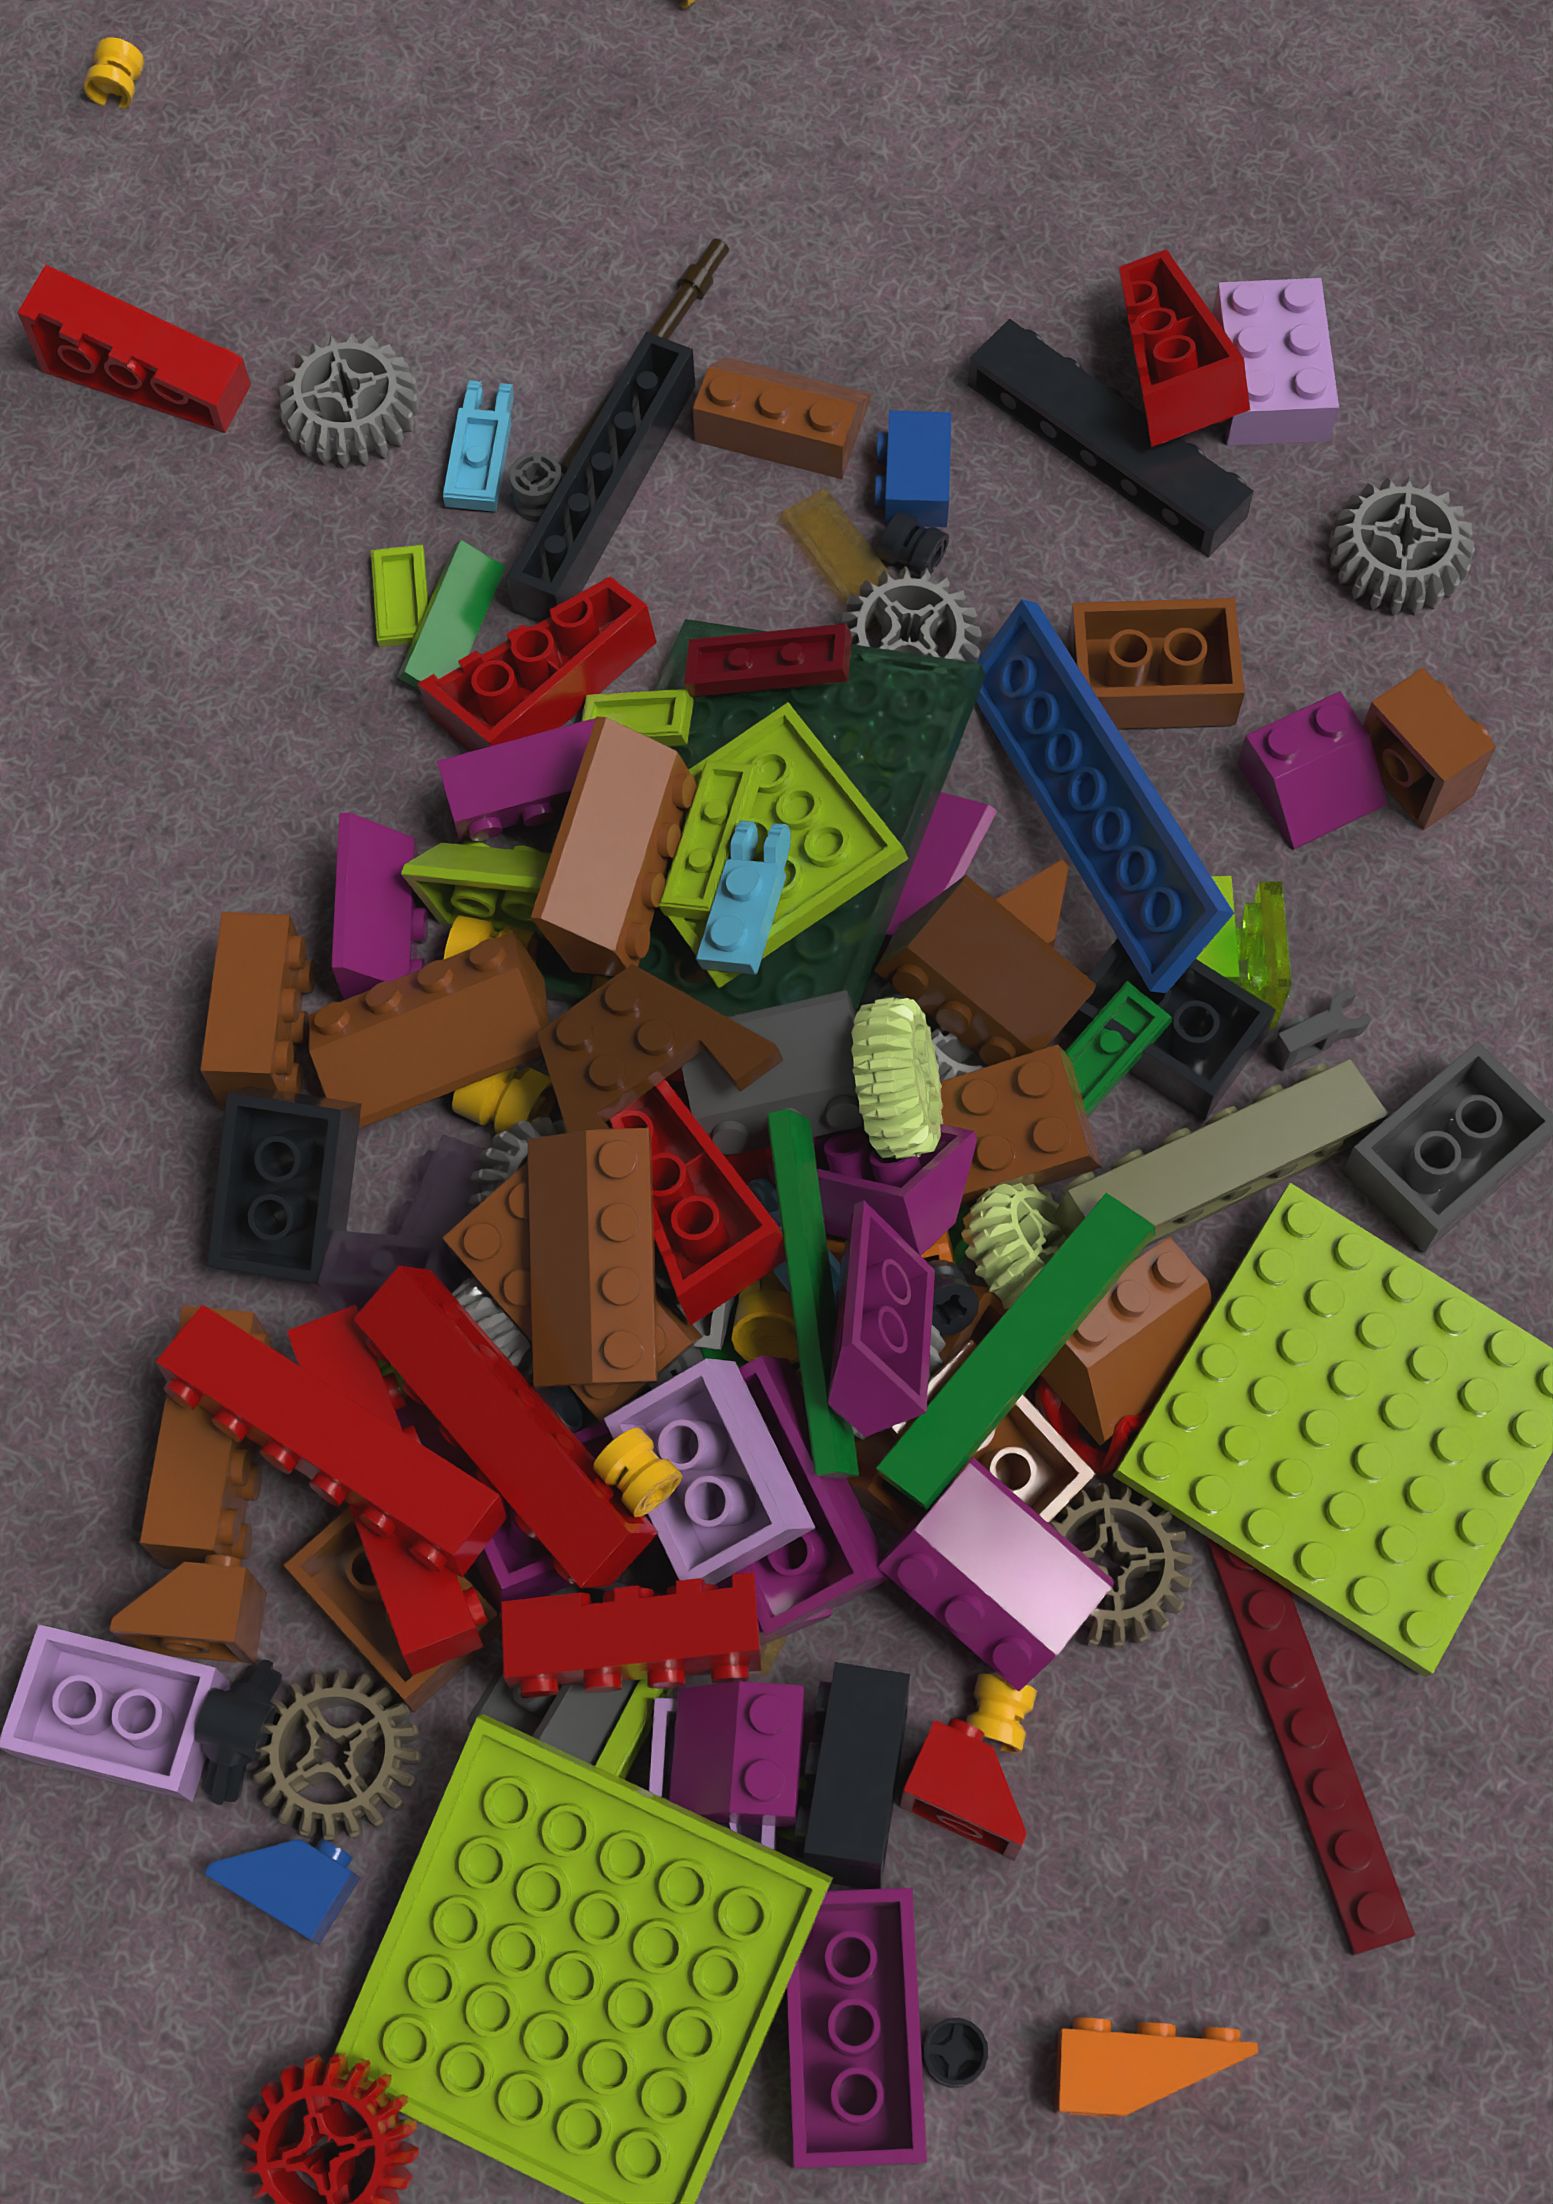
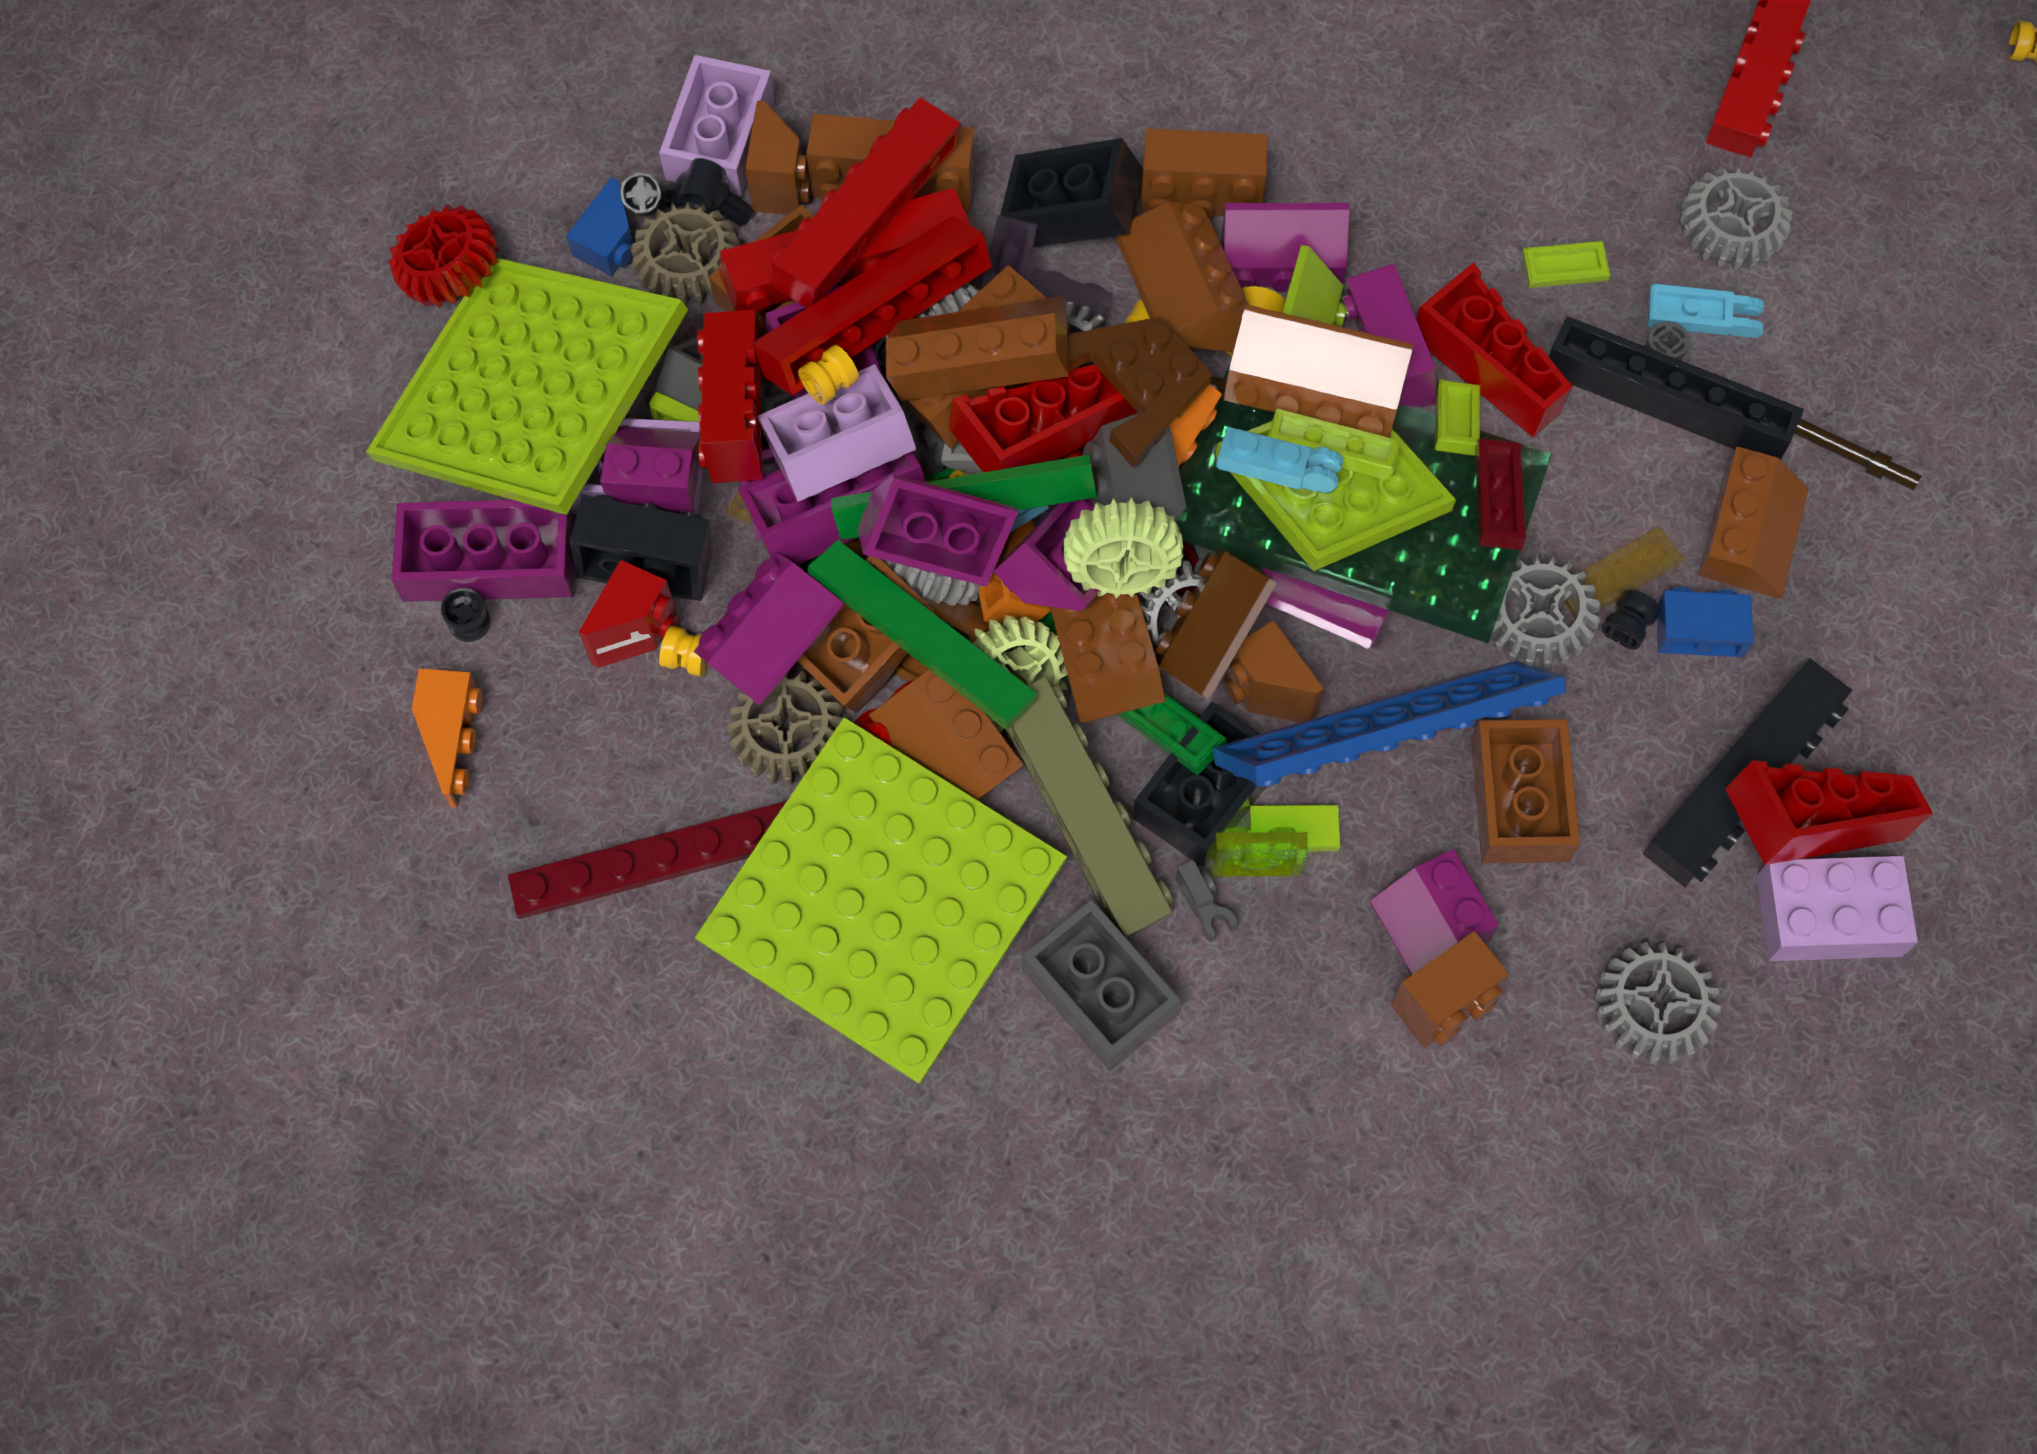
camera: 90 degrees right, 0 degrees up
(251, 1818) = (637, 190): none -> wheel
(452, 614) = (1544, 294): green tile -> none
(956, 1312) = (972, 601): black wheel -> none

